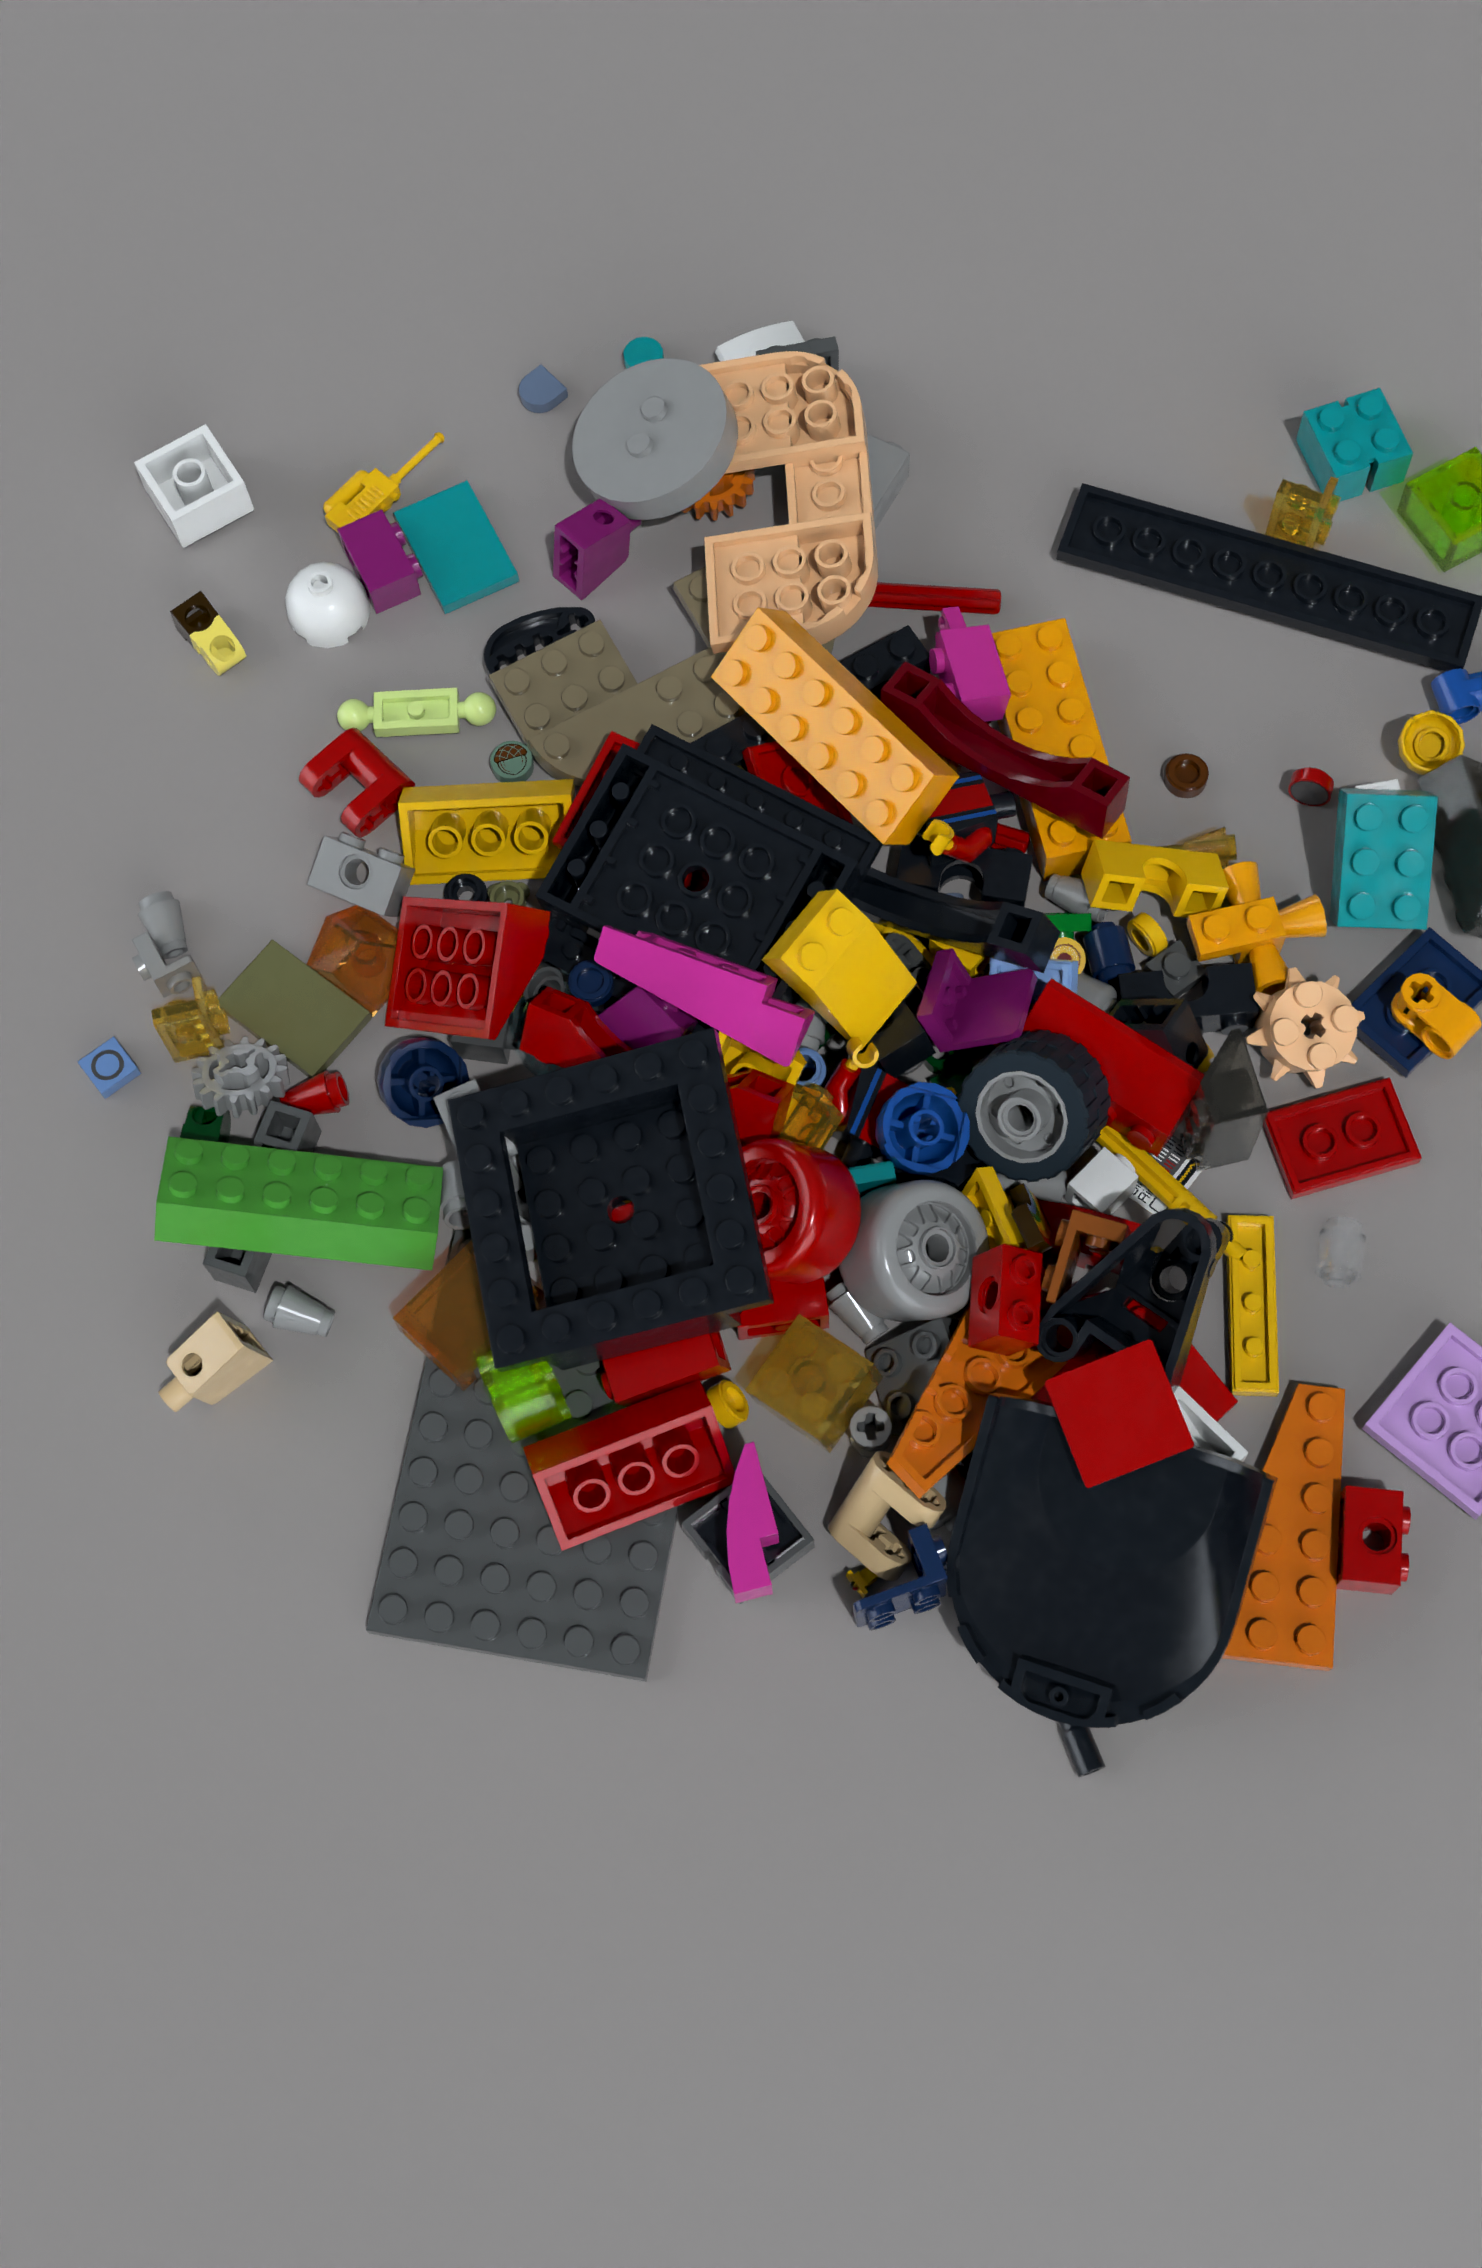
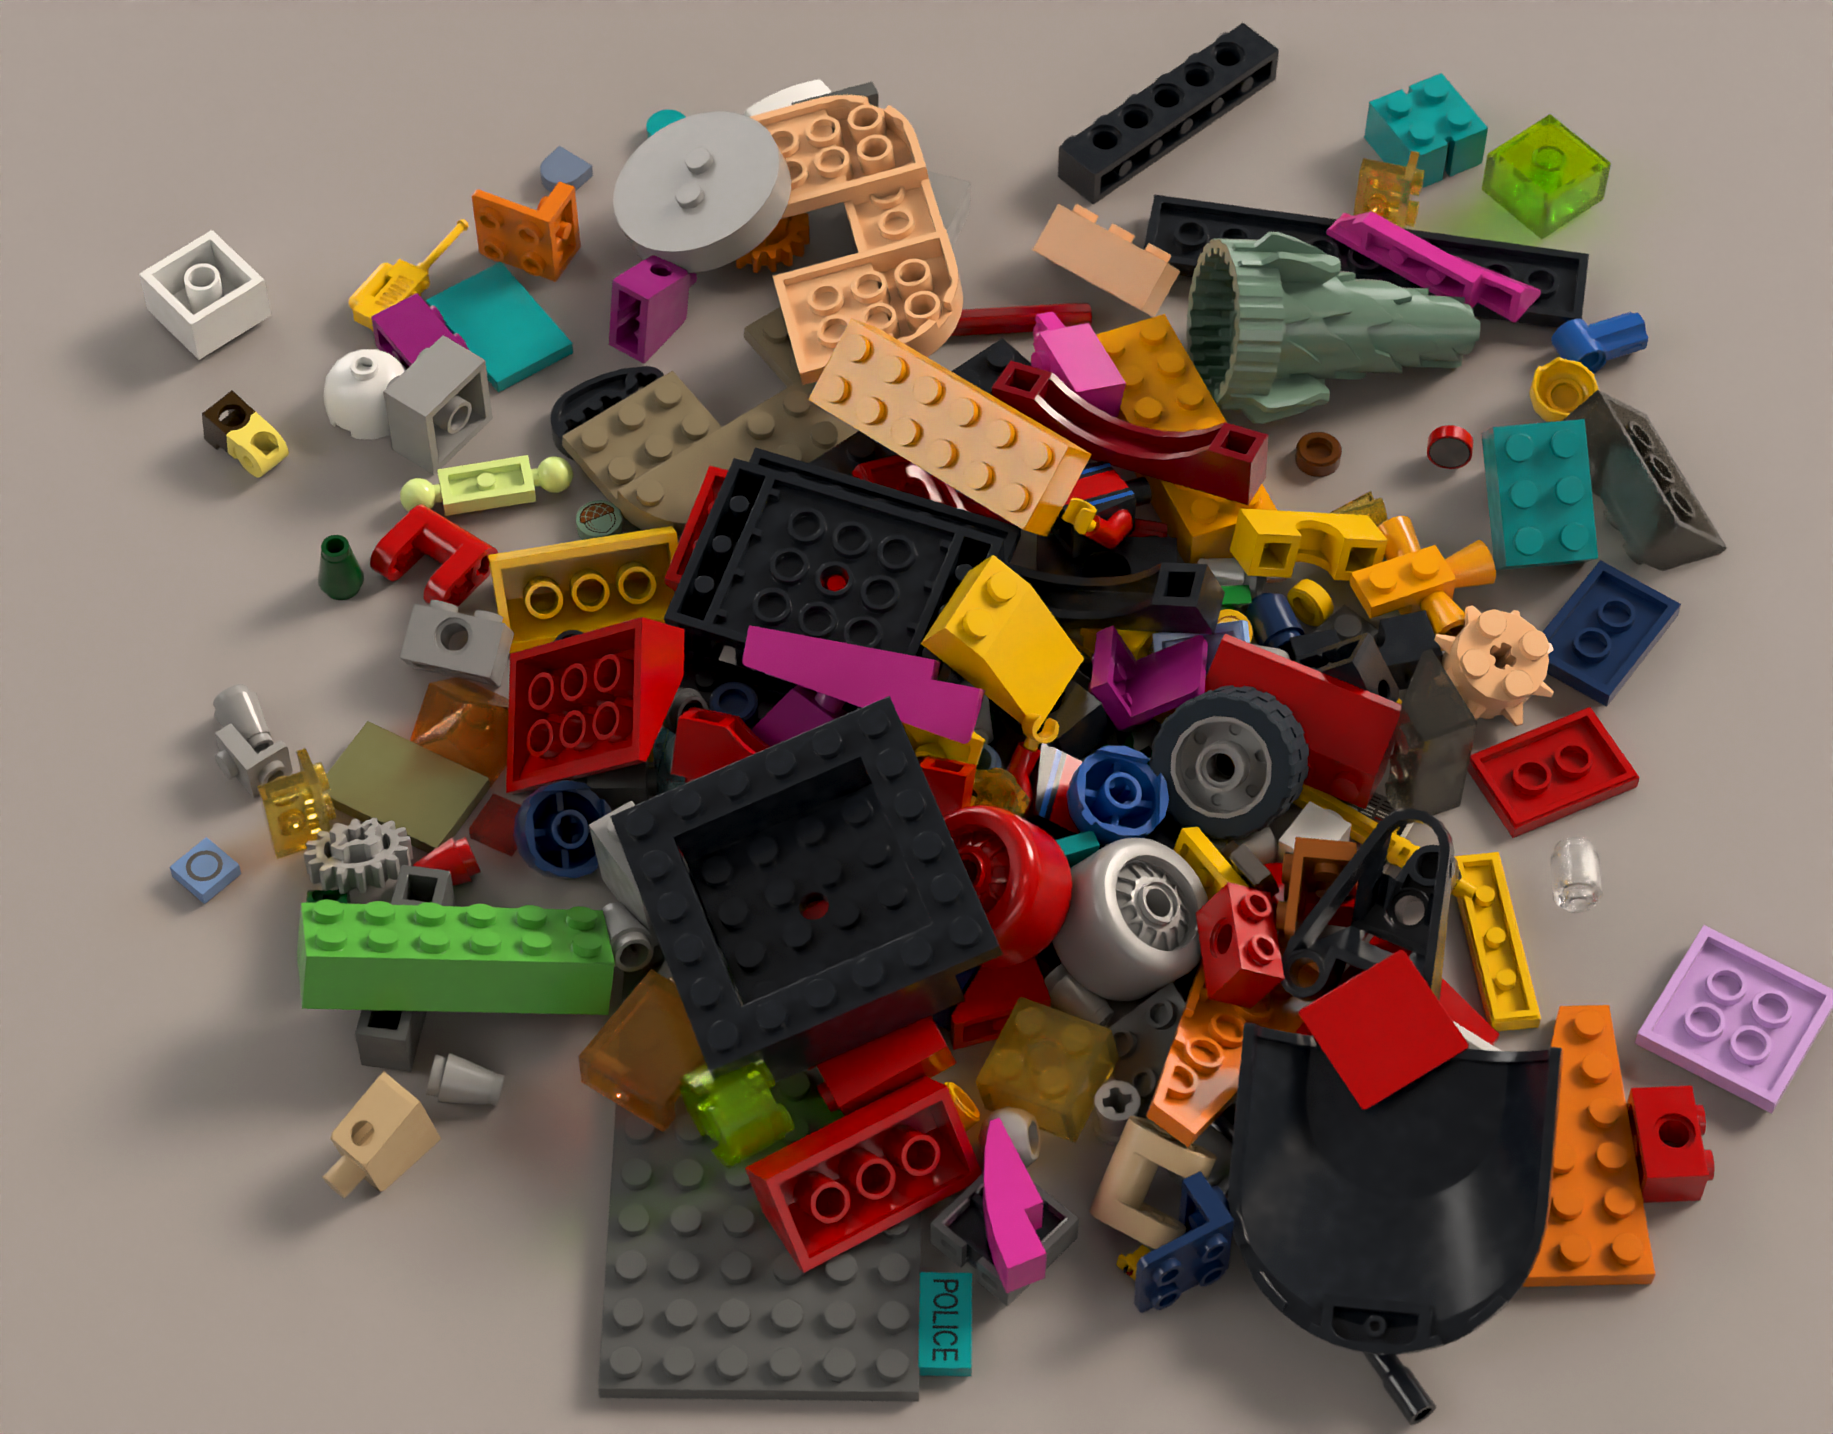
camera: 15 degrees left, 15 degrees down
(270, 783) = (339, 570): none -> dark green cone
(368, 1055) = (496, 825): none -> clear red tile
(382, 628) = (438, 404): none -> light grey brick
(502, 468) = (527, 238): none -> orange bracket
(681, 1613) = (945, 1324): none -> teal tile
(774, 1442) = (1021, 1129): none -> light grey piece
(1024, 548) = (1107, 258): none -> light nougat brick
(1172, 363) = (1167, 113): none -> black brick
(1174, 642) = (1283, 318): none -> sand green cone
(1333, 597) = (1431, 266): none -> dark pink wedge
(1437, 1018) = (1626, 637): light orange piece -> none

